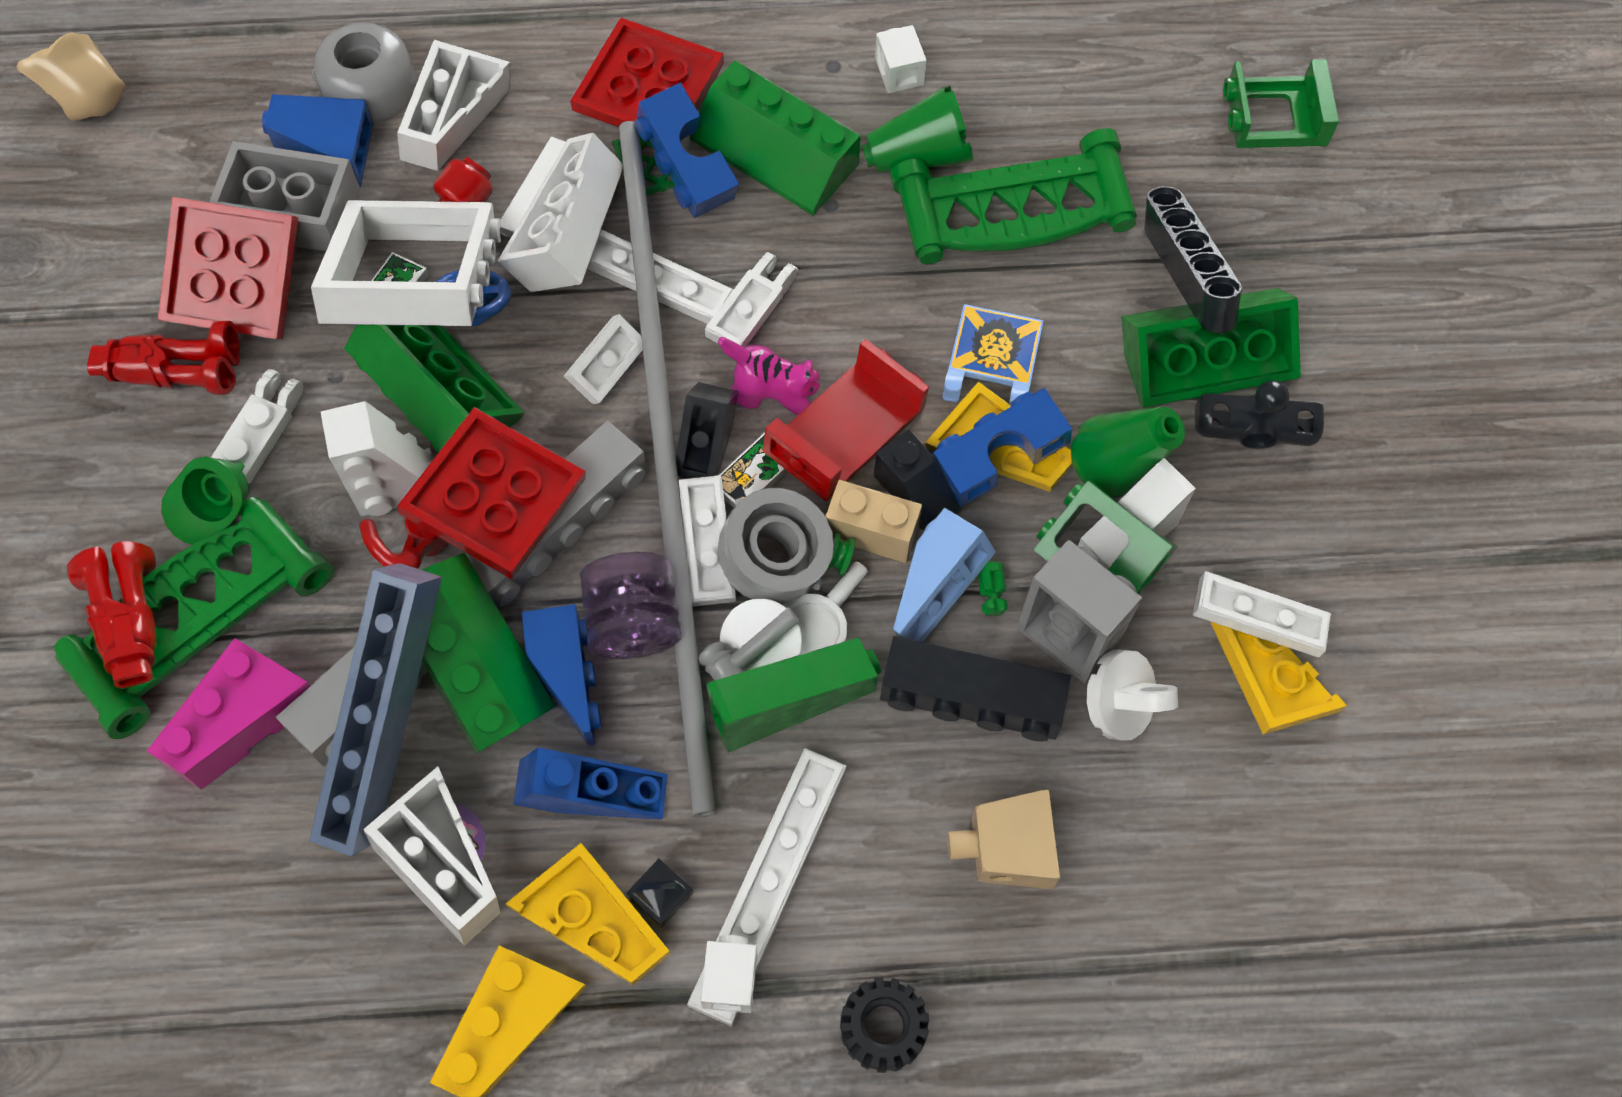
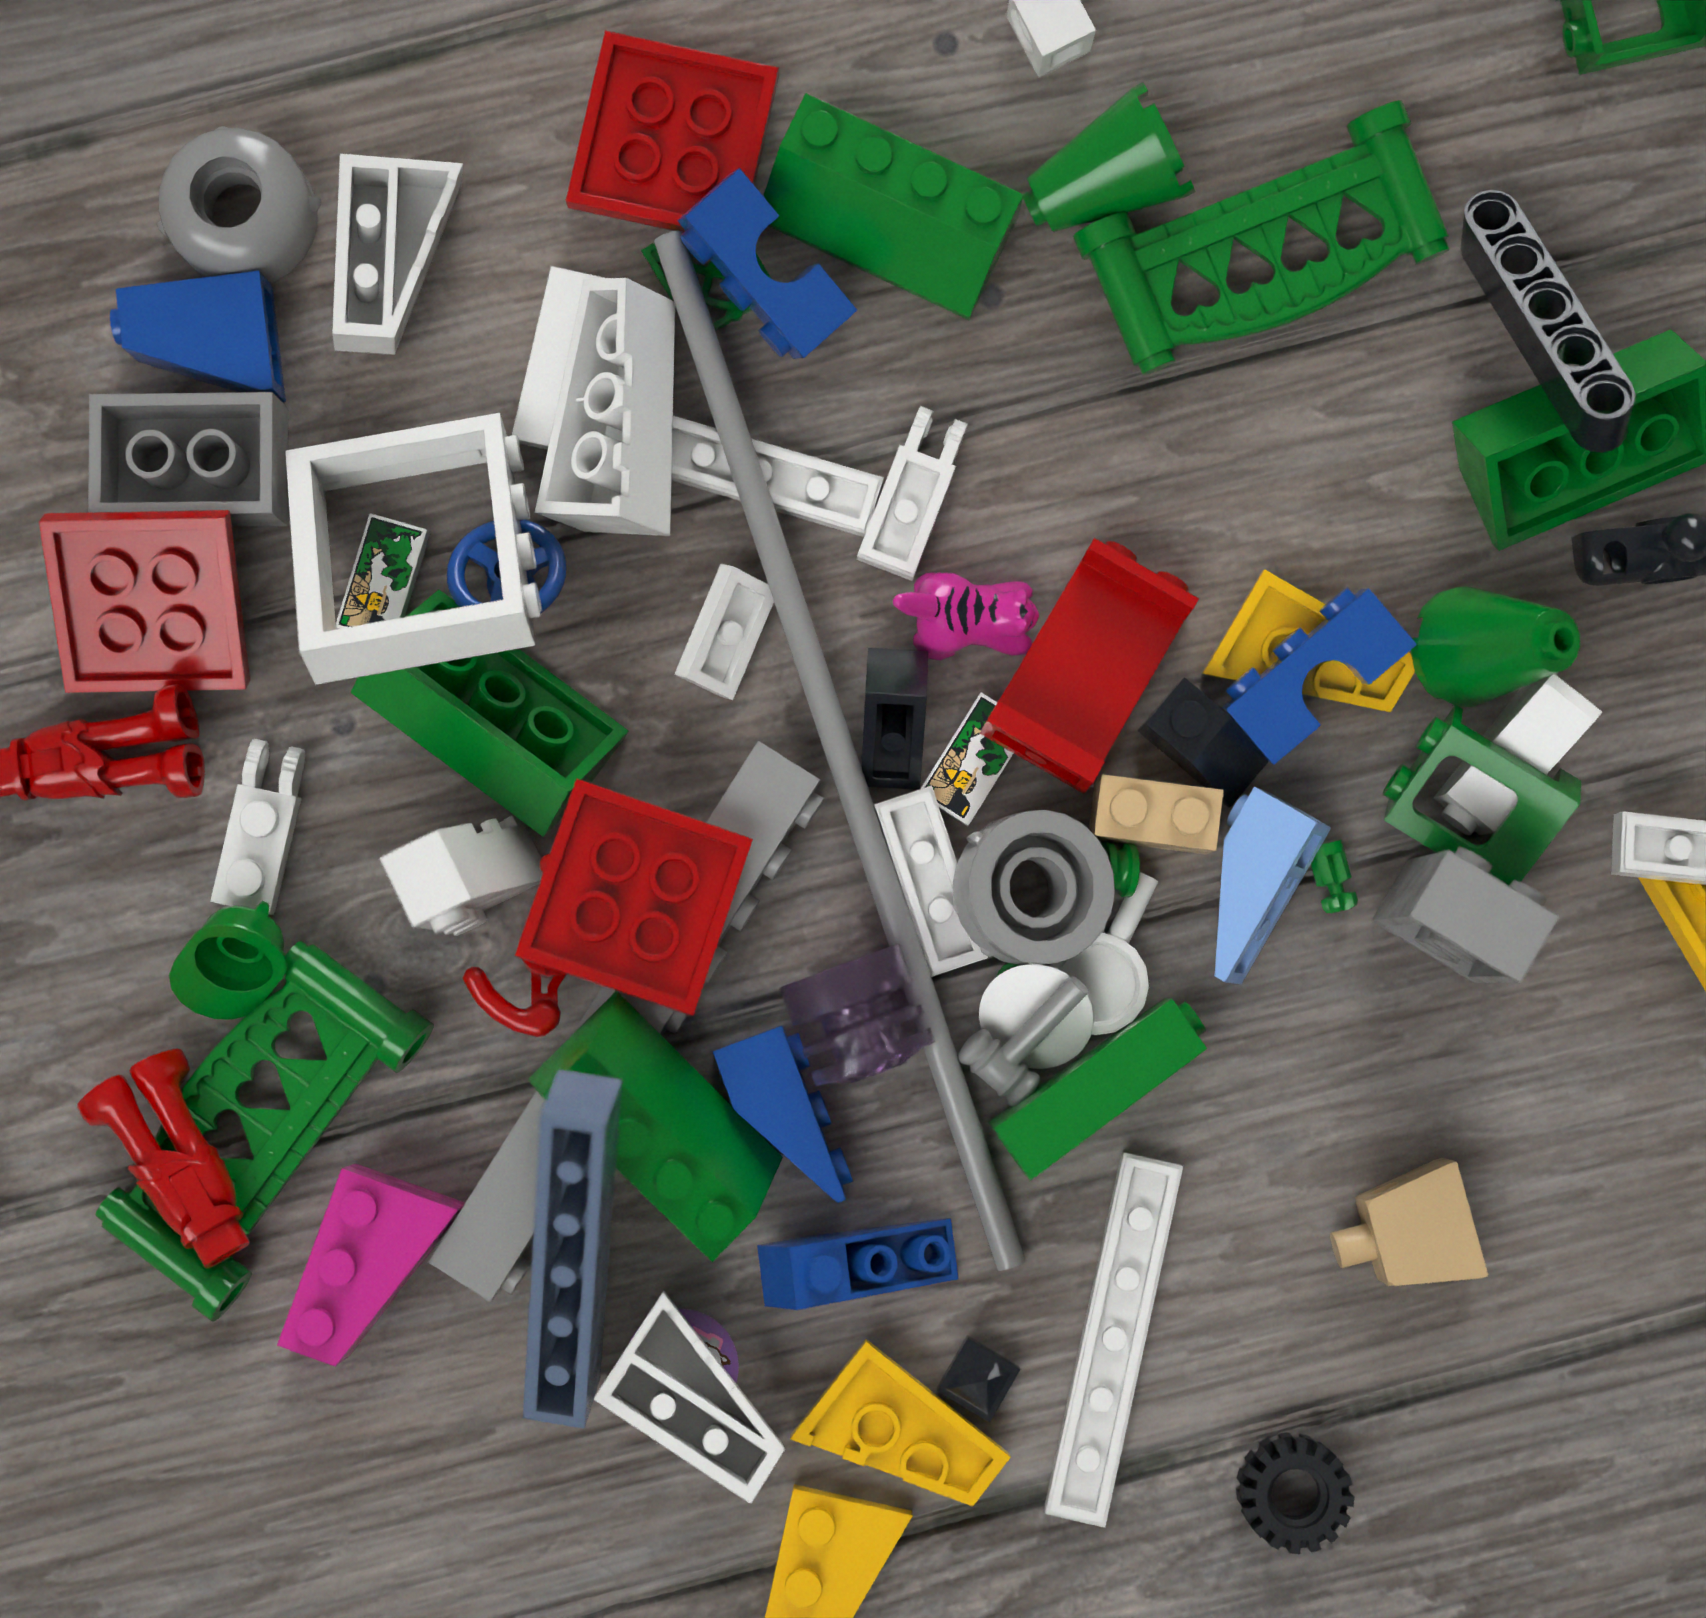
camera: 10 degrees left, 20 degrees up
(463, 182) = (444, 384): red head -> none
(729, 974) = (1096, 1480): white brick -> none
(975, 689) = (1334, 1030): black brick -> none
(993, 349) = (1277, 500): flag -> none
(1126, 695) = (1545, 1013): white tile -> none

